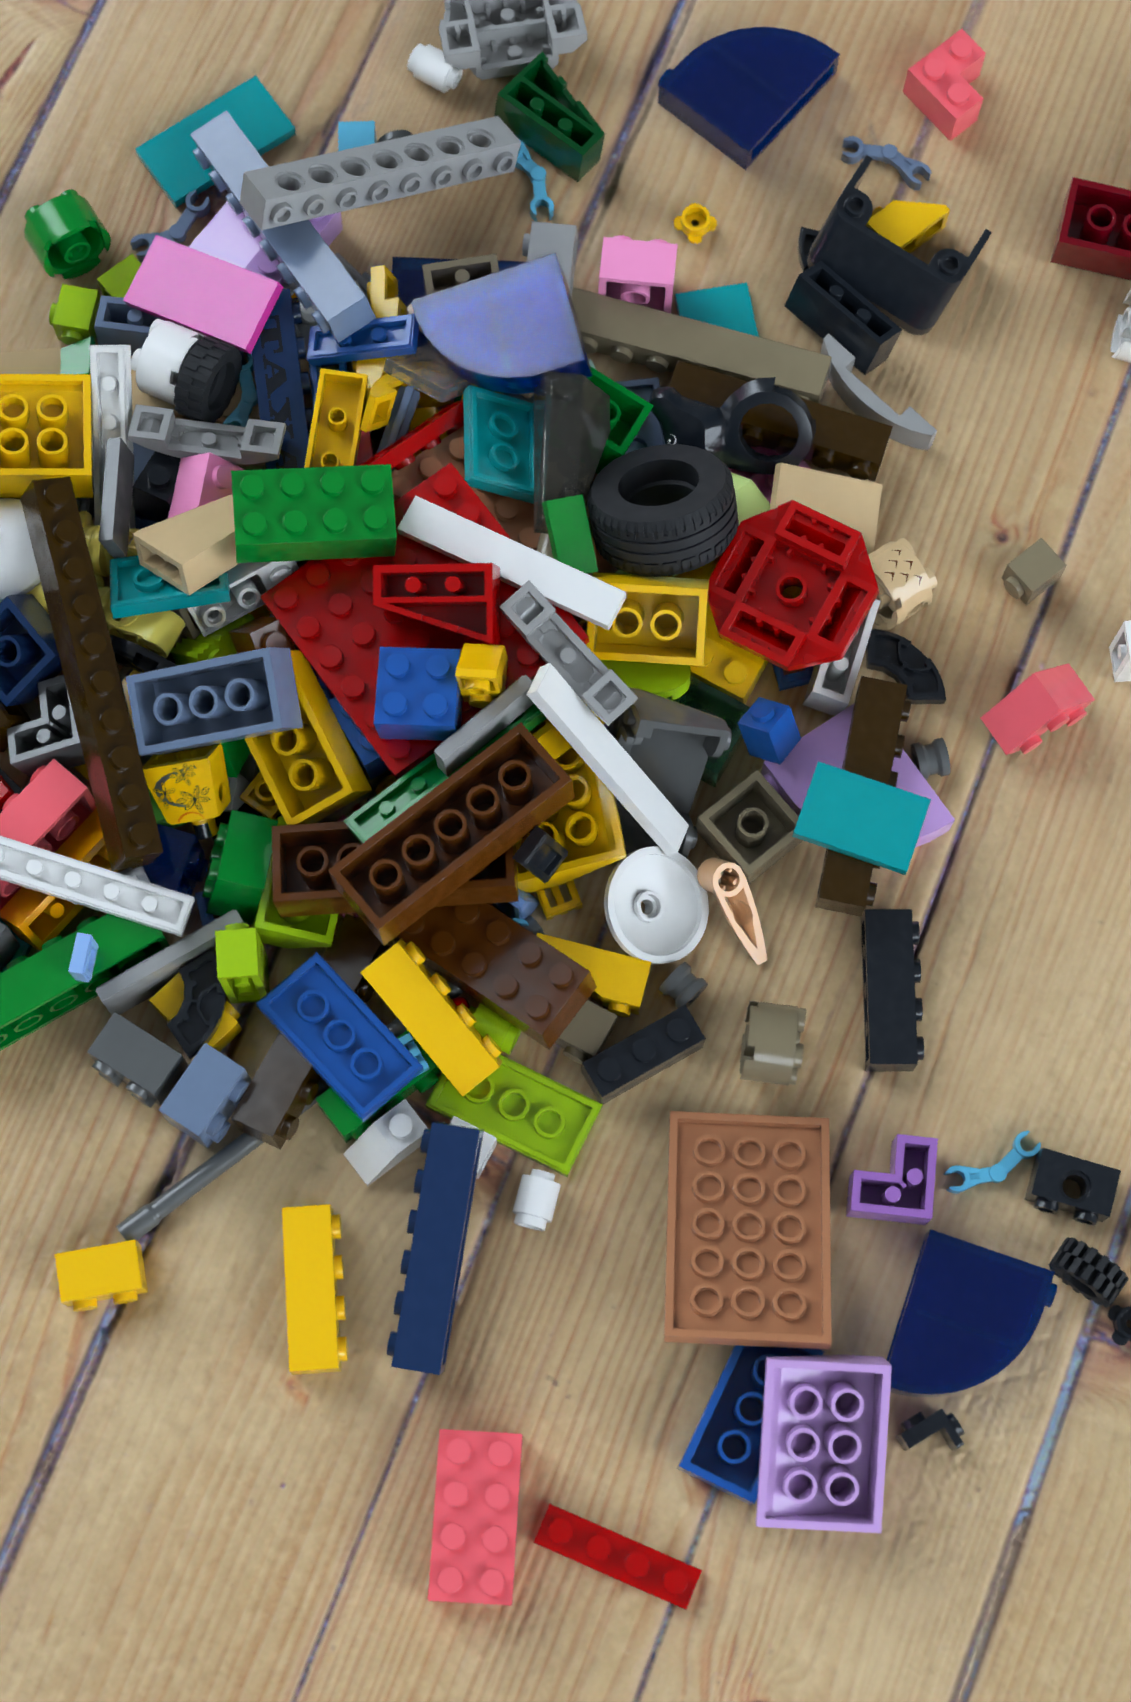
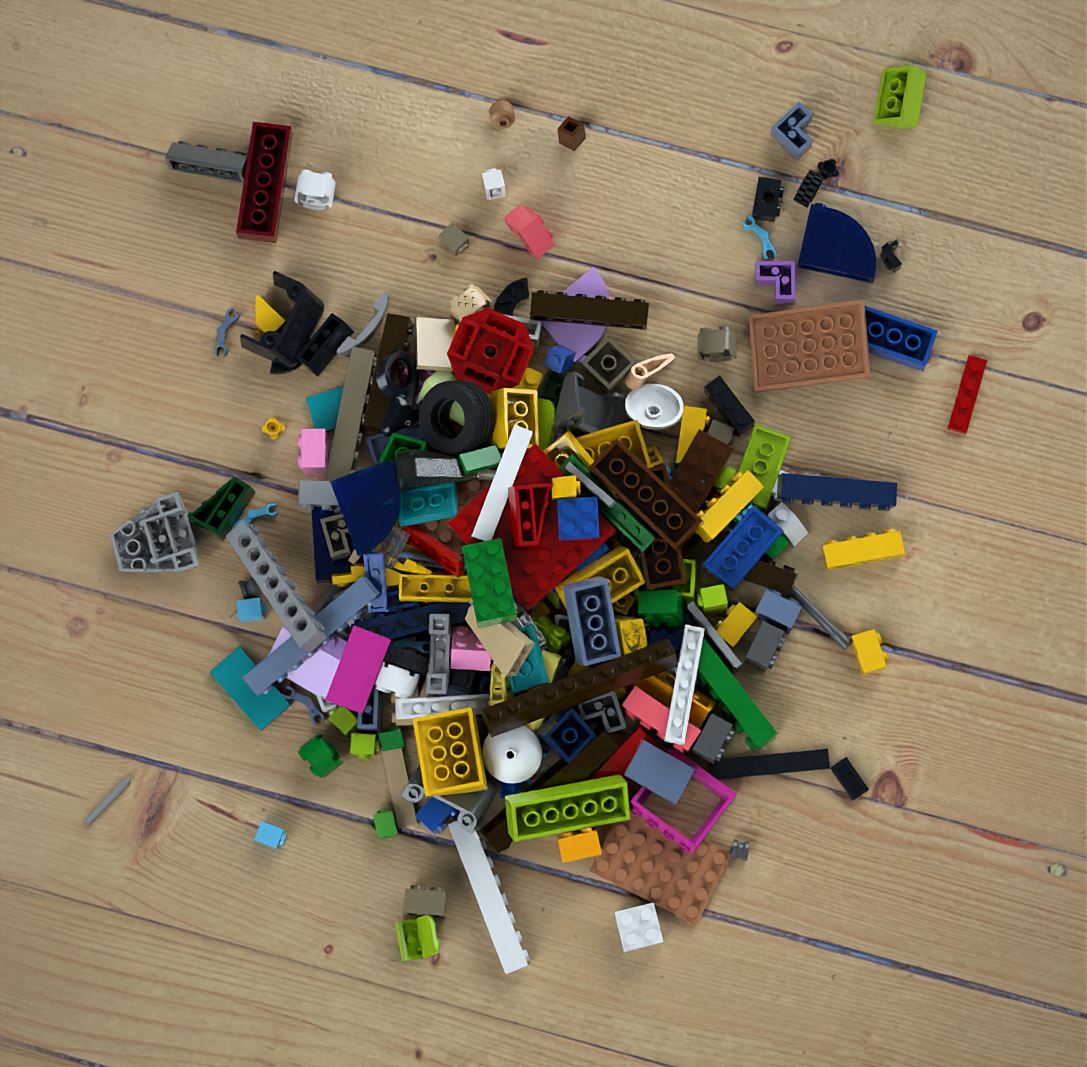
camera: 90 degrees left, 5 degrees up
(83, 957) = (723, 672): light blue tile -> none
(116, 498) = (480, 694): dark grey tile -> none
(202, 1004) = (733, 619): black tile -> none
(260, 634) = (549, 610): reddish brown brick -> none
(430, 67) = (195, 577): white brick -> none
(475, 1517) = (959, 459): coral brick -> none
(536, 1200) = (806, 449): white brick -> none
(540, 854) = (643, 456): black tile -> none
(557, 644) = (550, 448): light grey slope -> none
(607, 759) = (594, 429): white tile -> none
(683, 986) = (692, 391): dark grey wheel -> none
(747, 87) = (192, 408): clear blue brick -> none
(824, 1443) = (905, 300): lavender slope -> none
(861, 818) = (605, 307): teal tile -> none
(889, 990) = (682, 292): black brick -> none
(931, 758) = (560, 281): dark grey wheel -> none
(942, 84) = (180, 307): coral brick -> none

